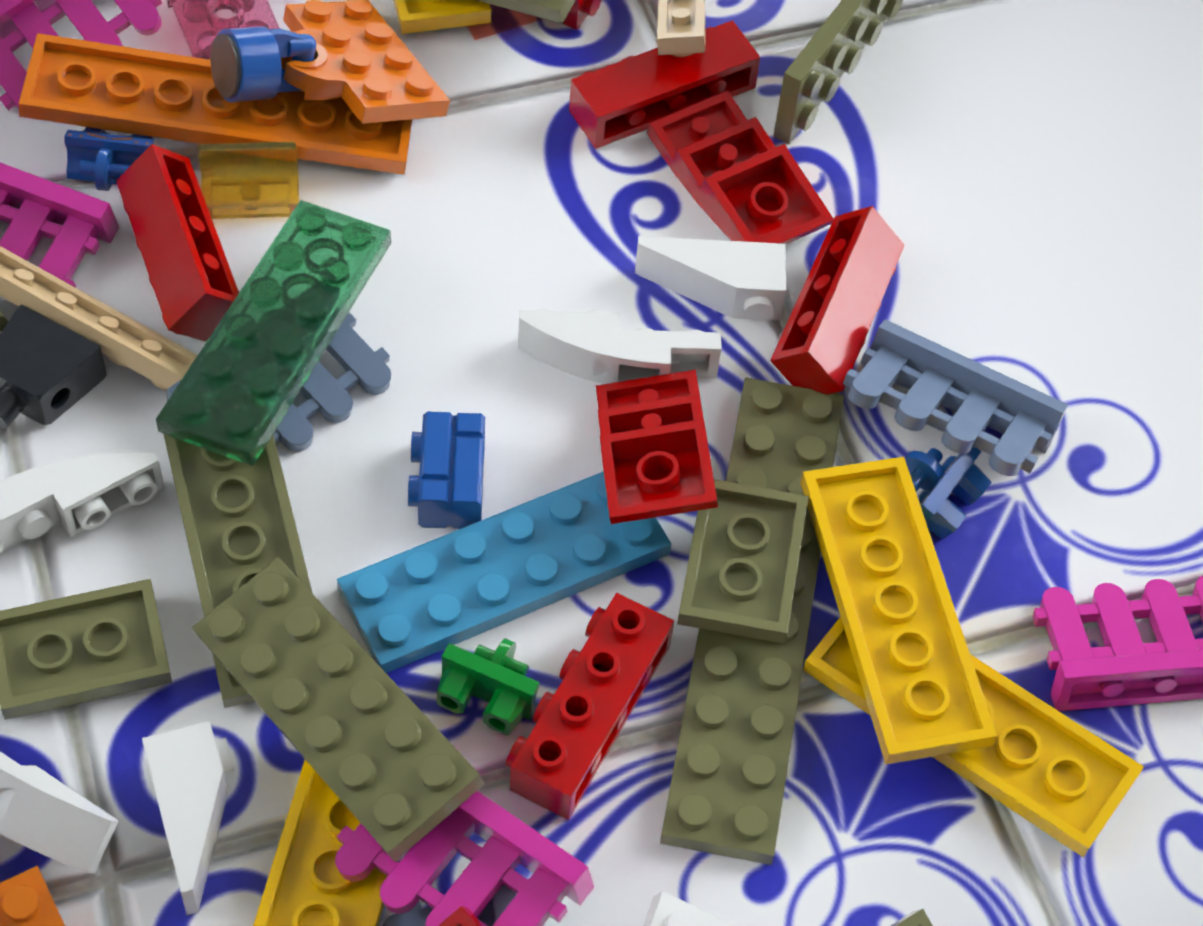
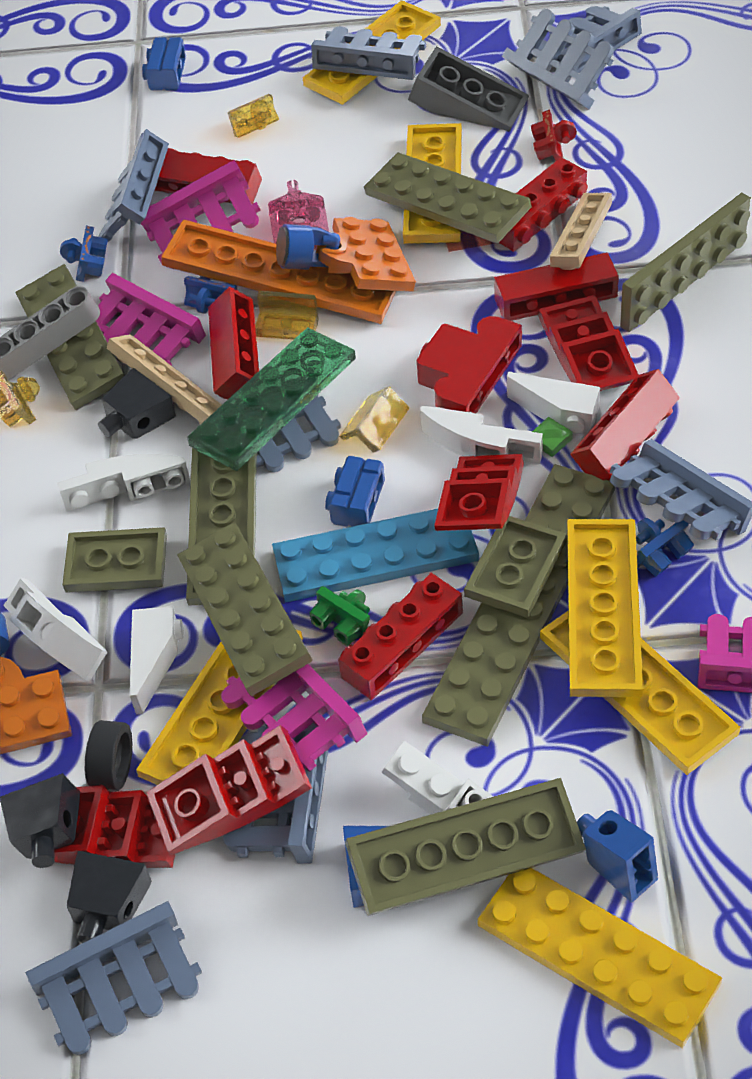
camera: 25 degrees right, 5 degrees down
(443, 339) = (376, 419): none -> clear yellow panel
(562, 226) = (467, 364): none -> red brick
(734, 329) = (554, 436): none -> bright green tile

